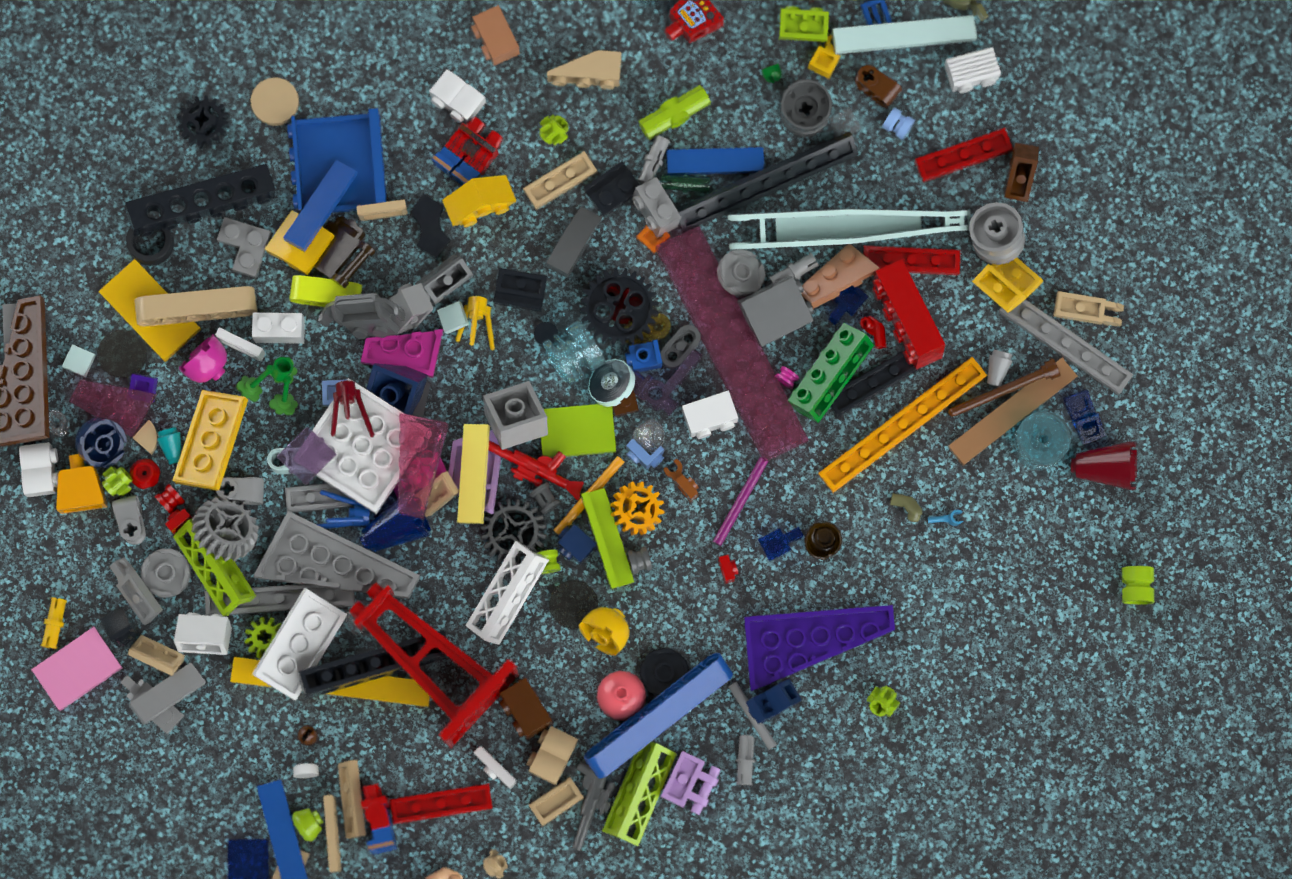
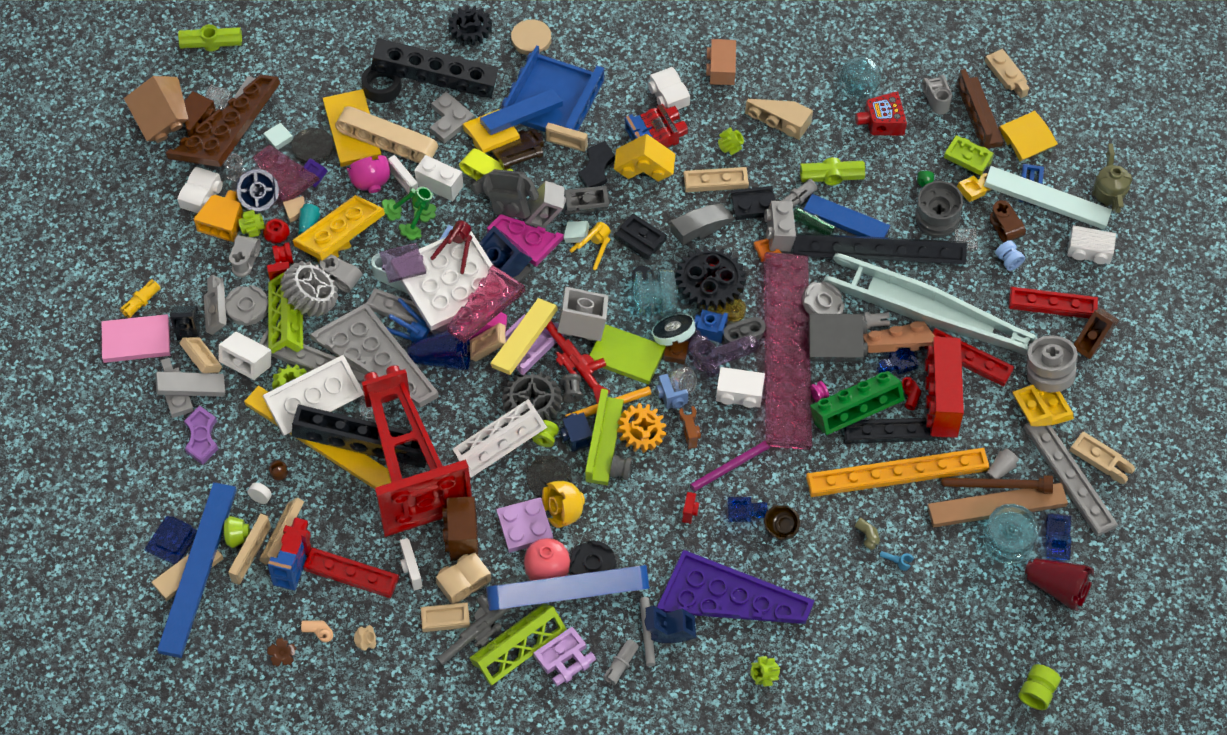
camera: 30 degrees right, 20 degrees down
(215, 748) = (201, 445): none -> medium lavender tile
(578, 667) = (524, 524): none -> lavender plate

